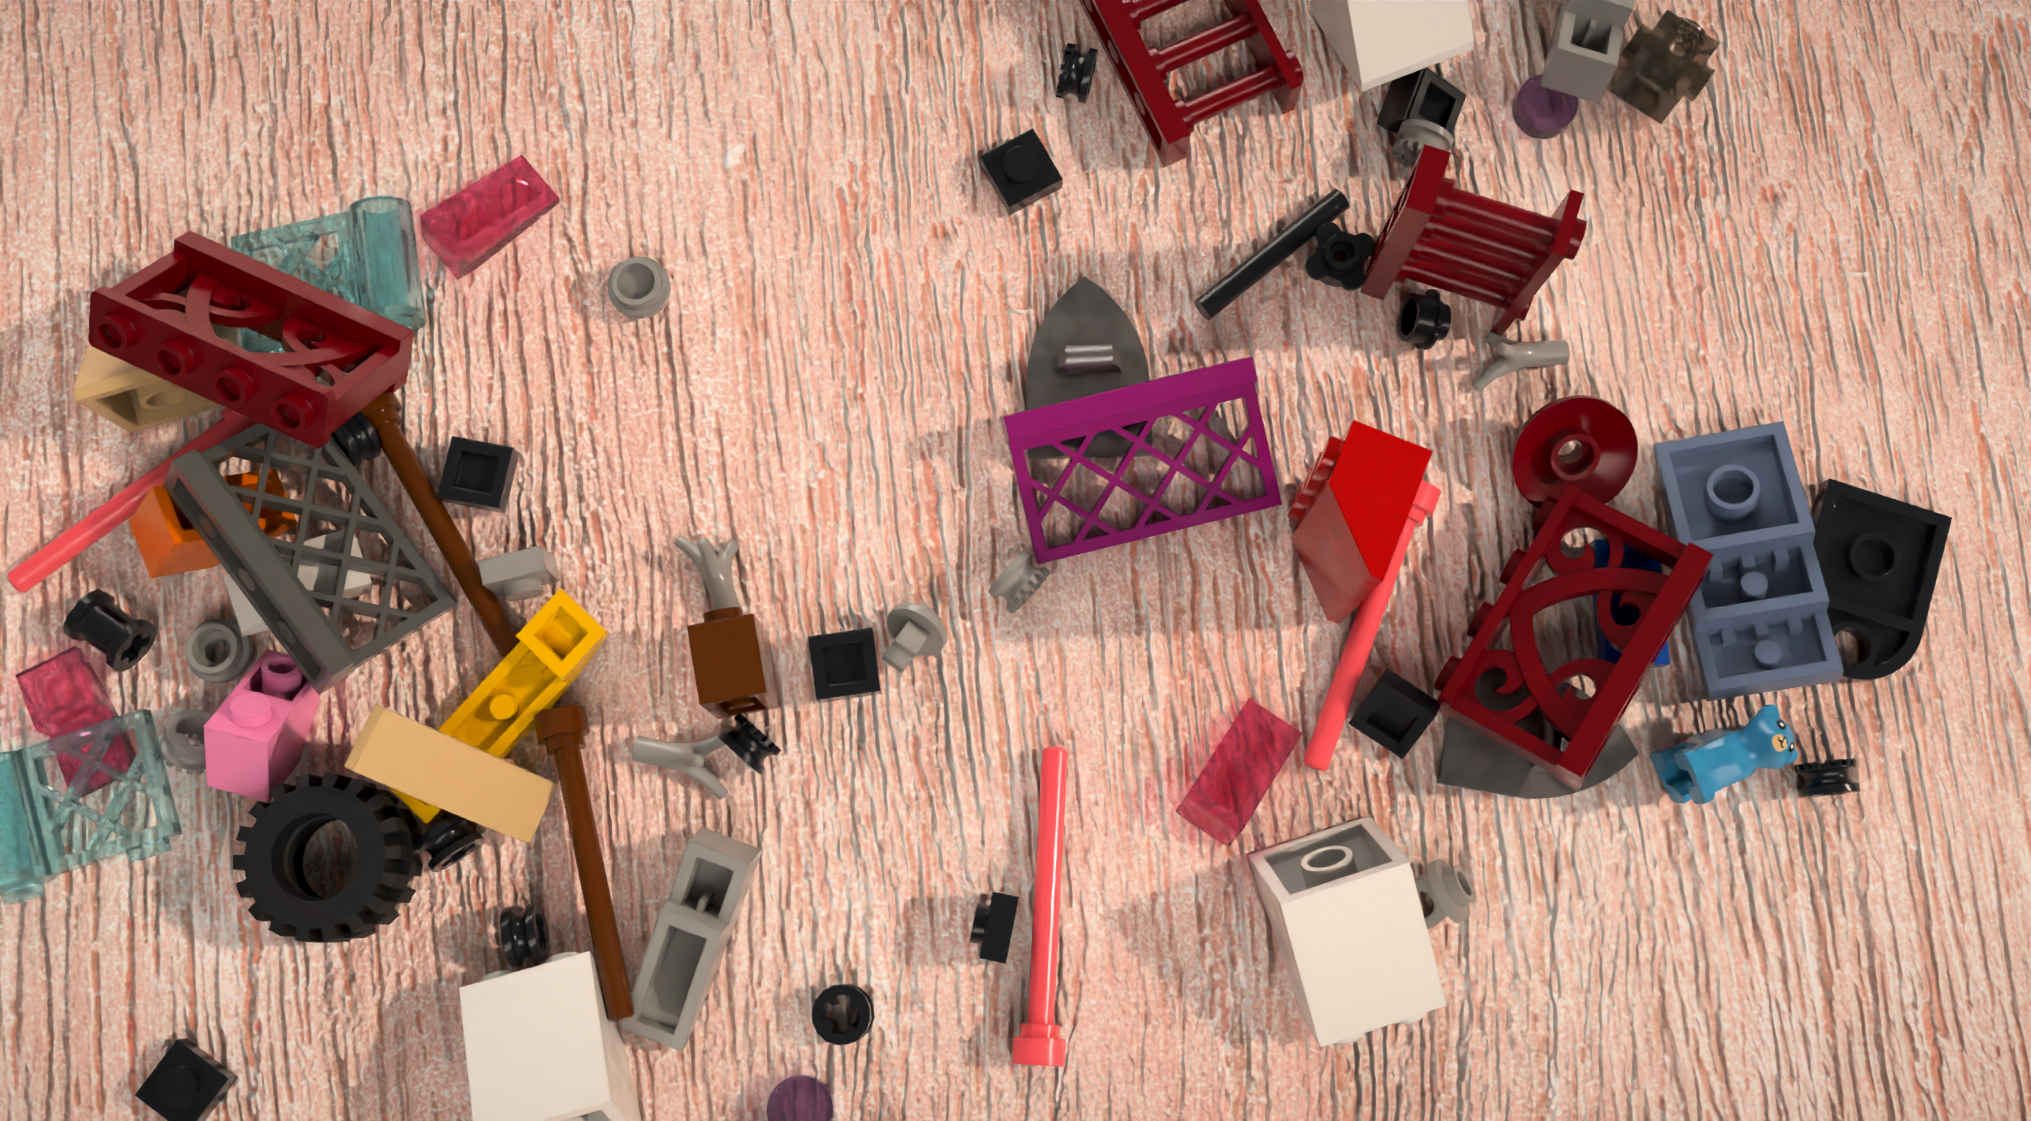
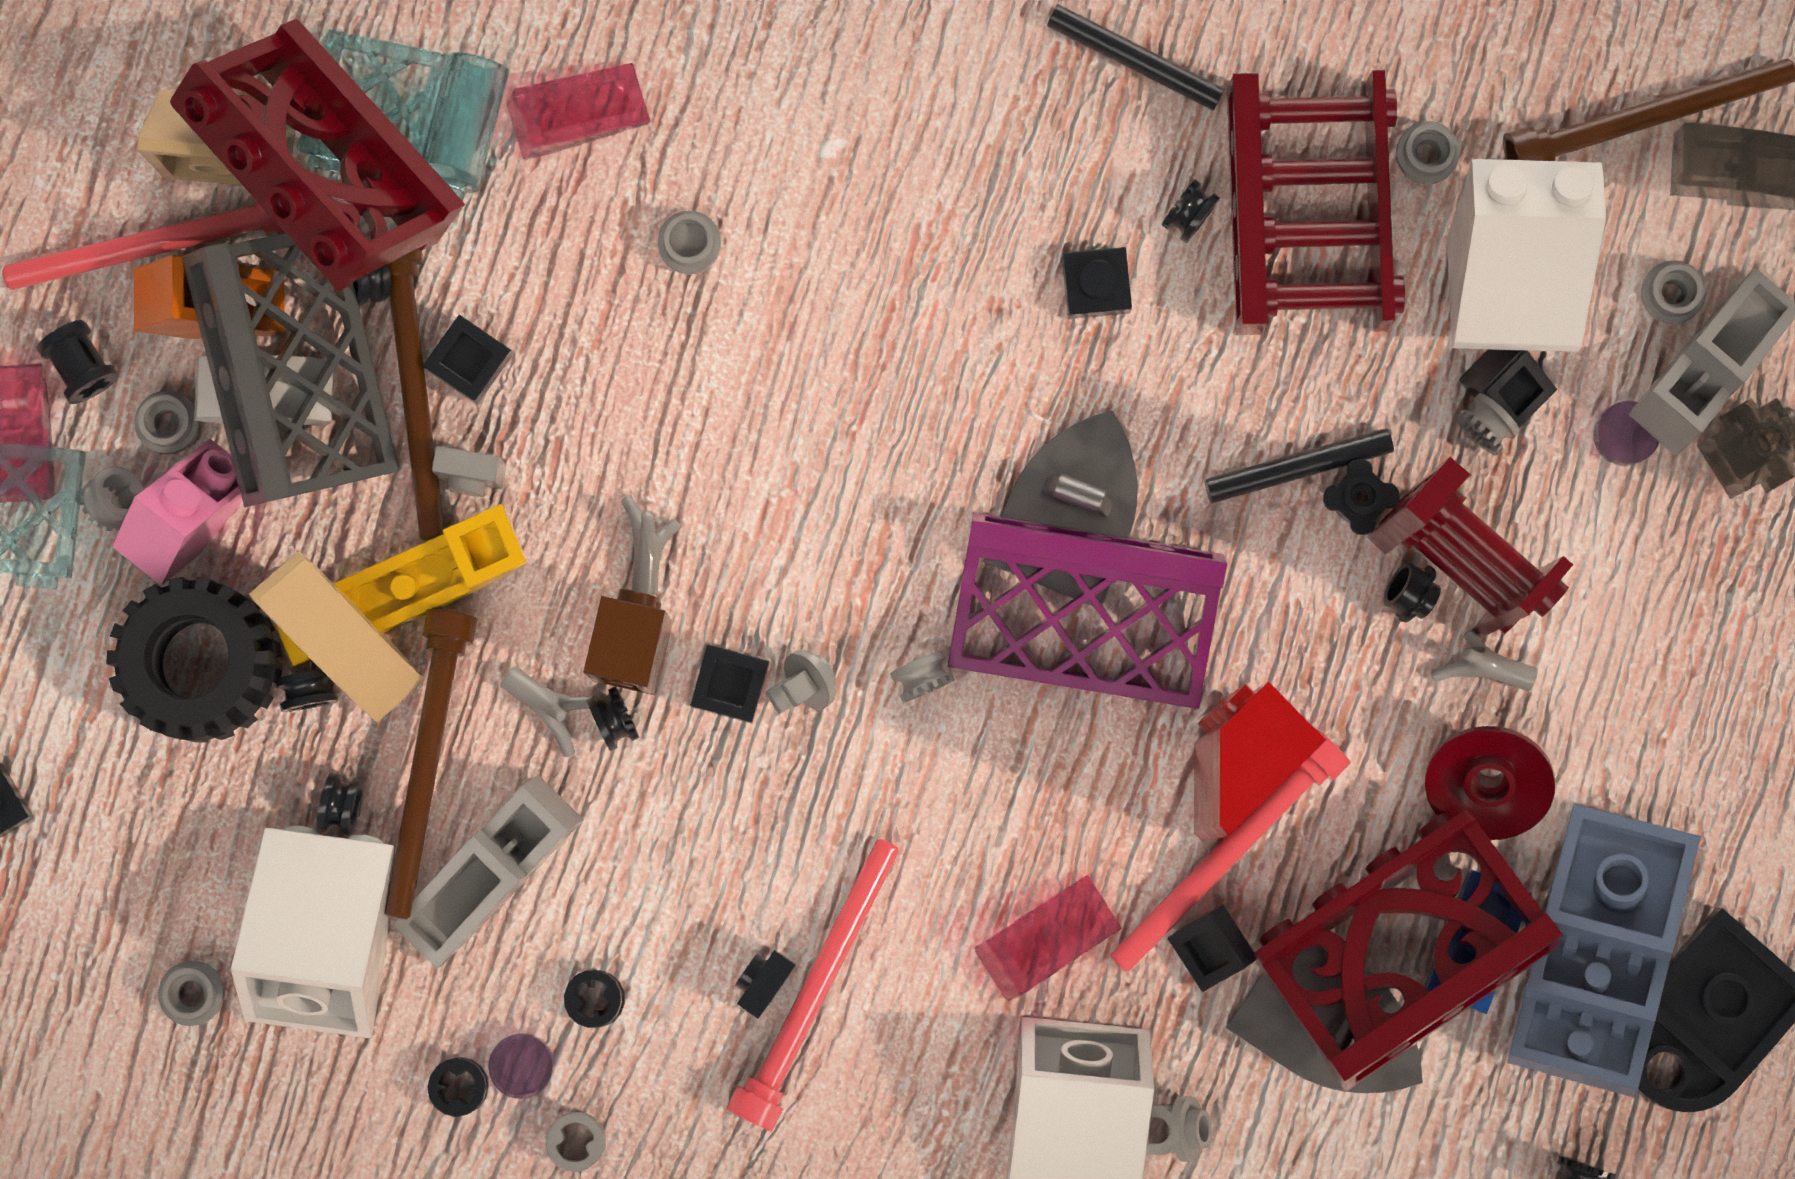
camera: 20 degrees right, 5 degrees up
(1723, 757) = (1493, 1120): dark azure animal -> none

